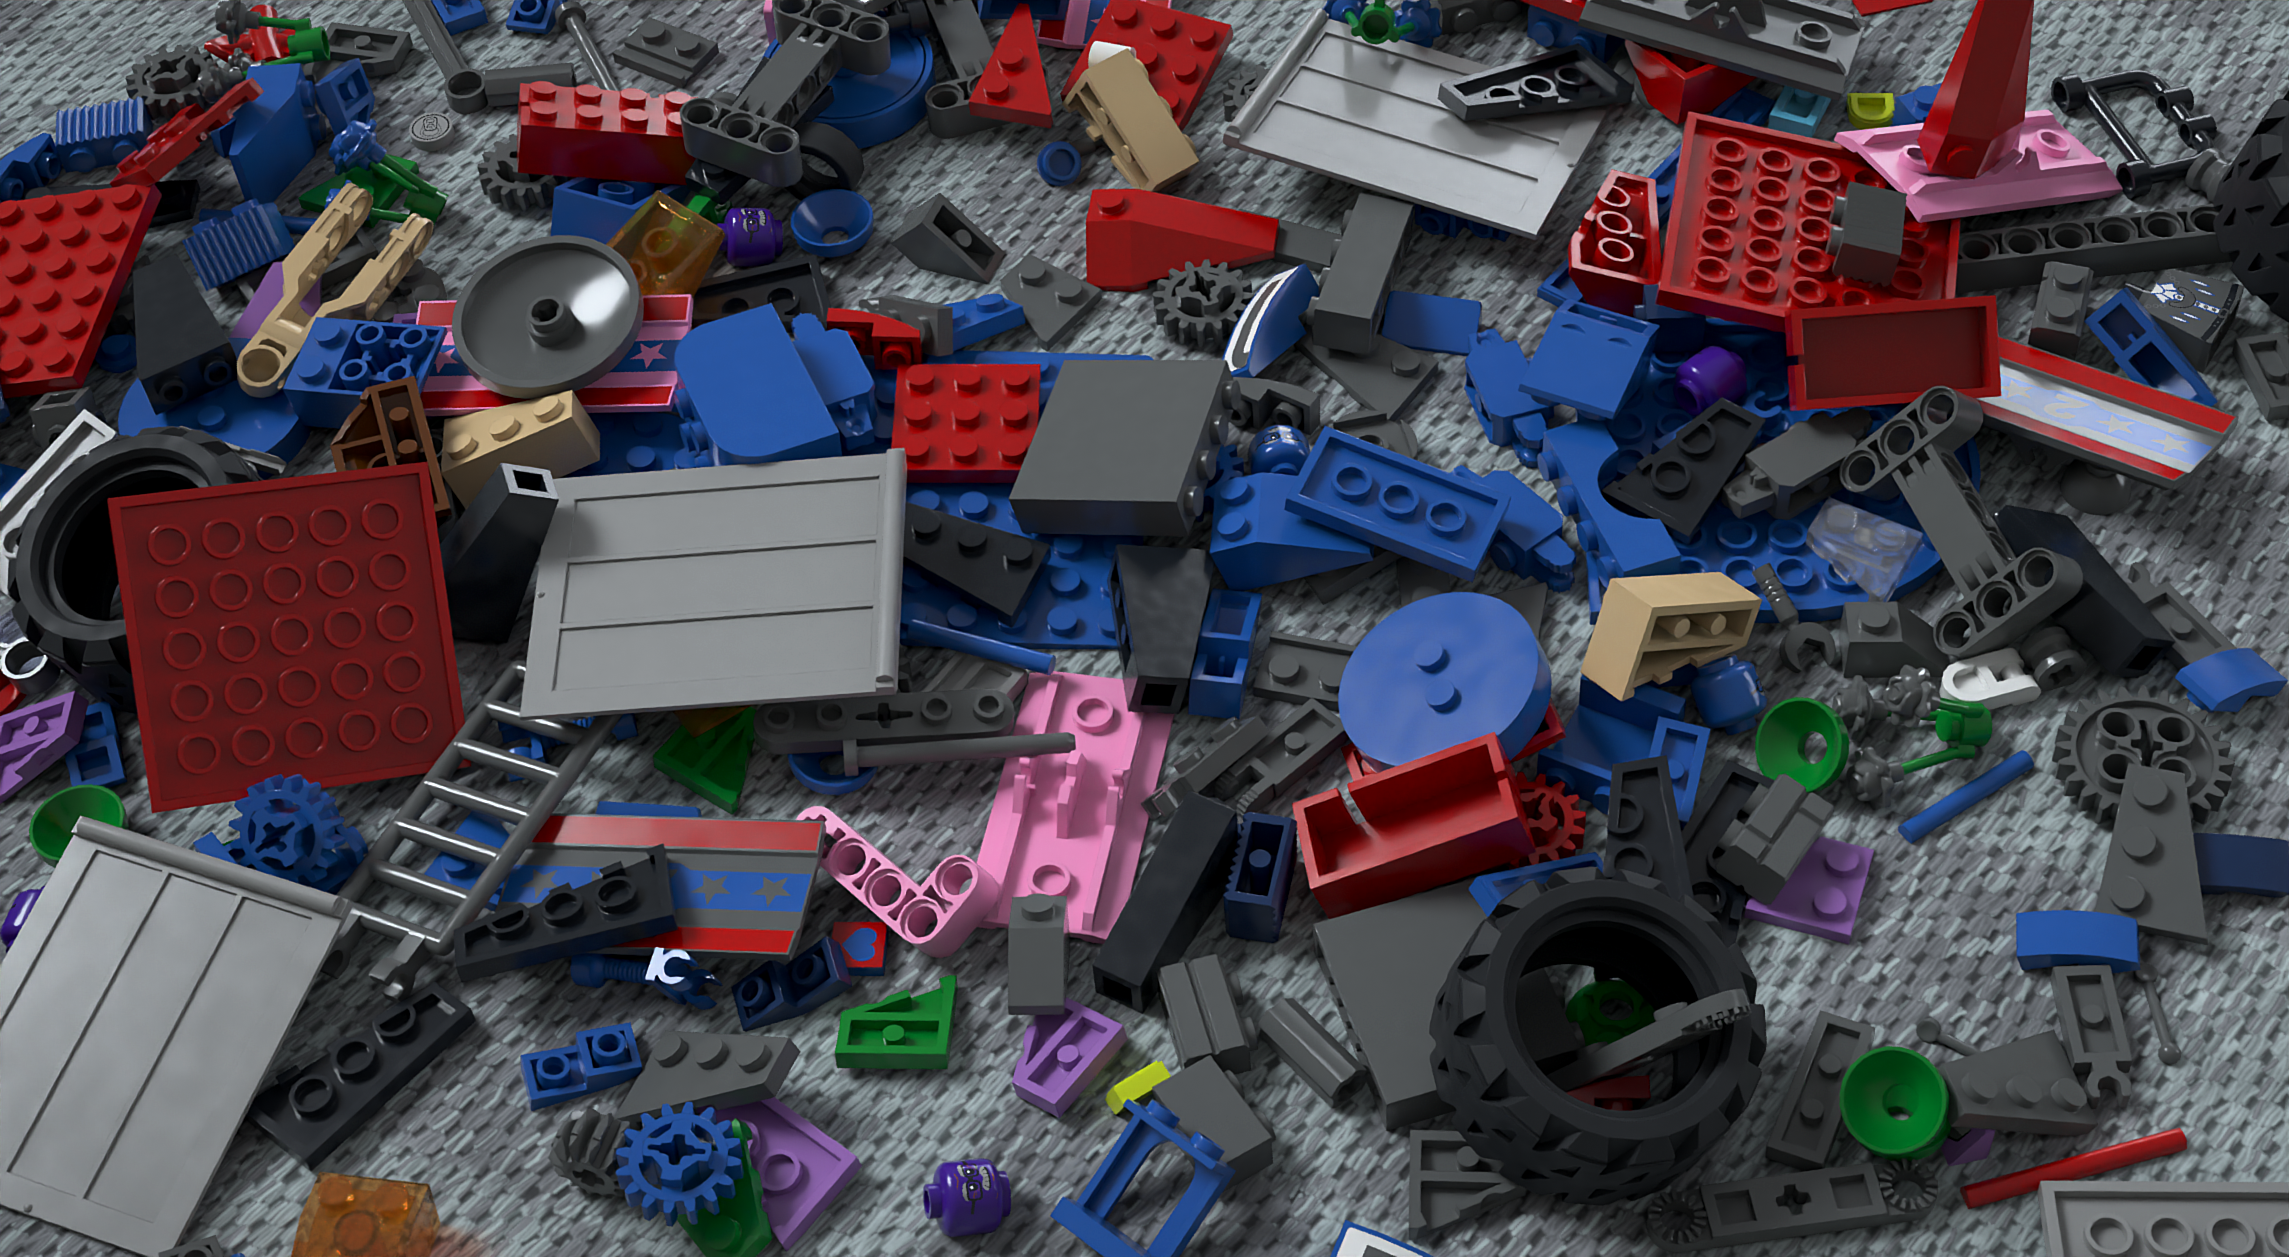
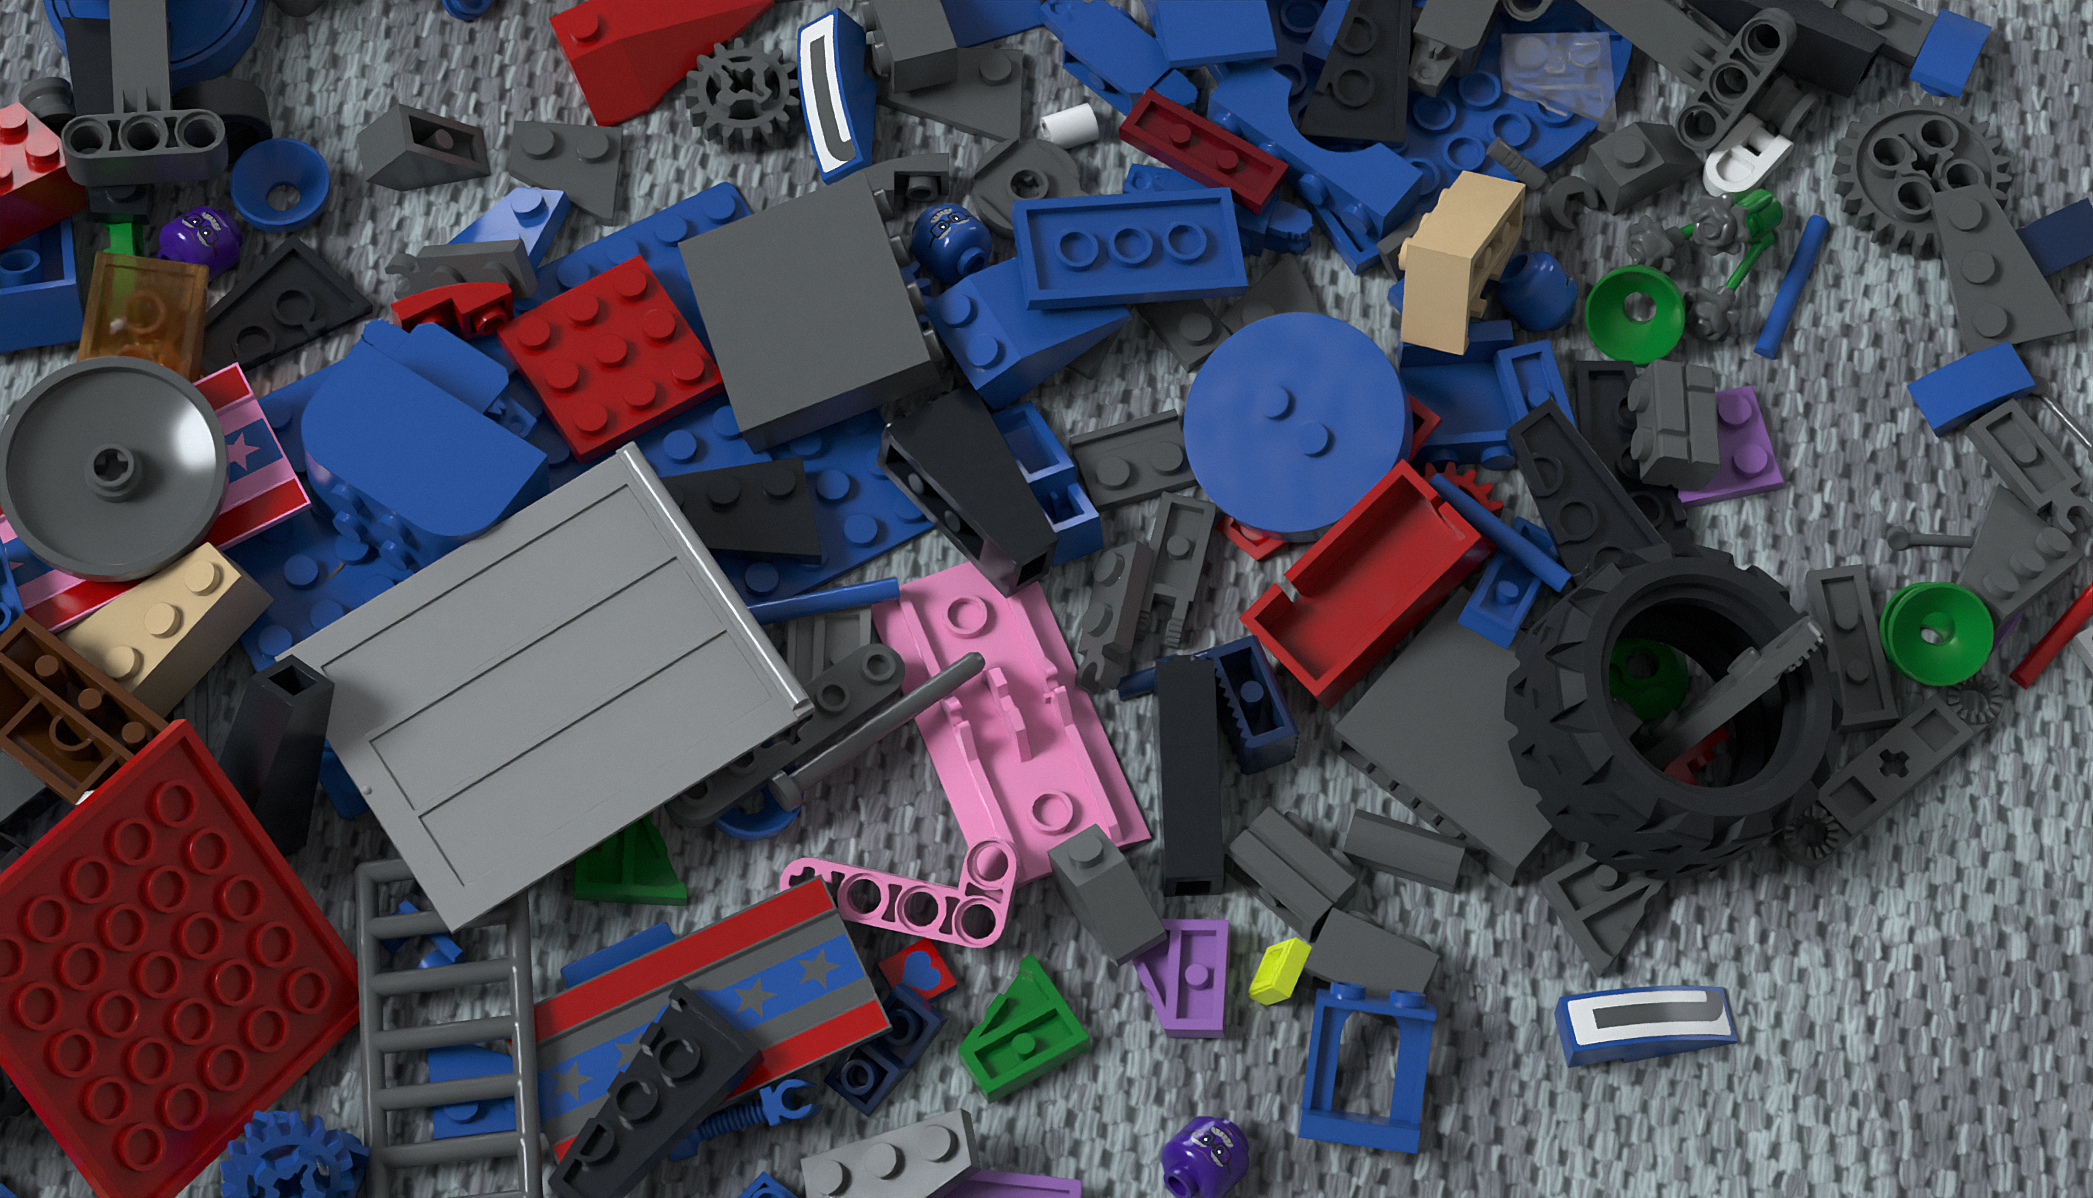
camera: 40 degrees left, 15 degrees up
(1435, 426) = (1071, 126): none -> white hinge
(1514, 469) = (1203, 151): none -> dark red plate
(1547, 822) = (1502, 535): none -> blue bar

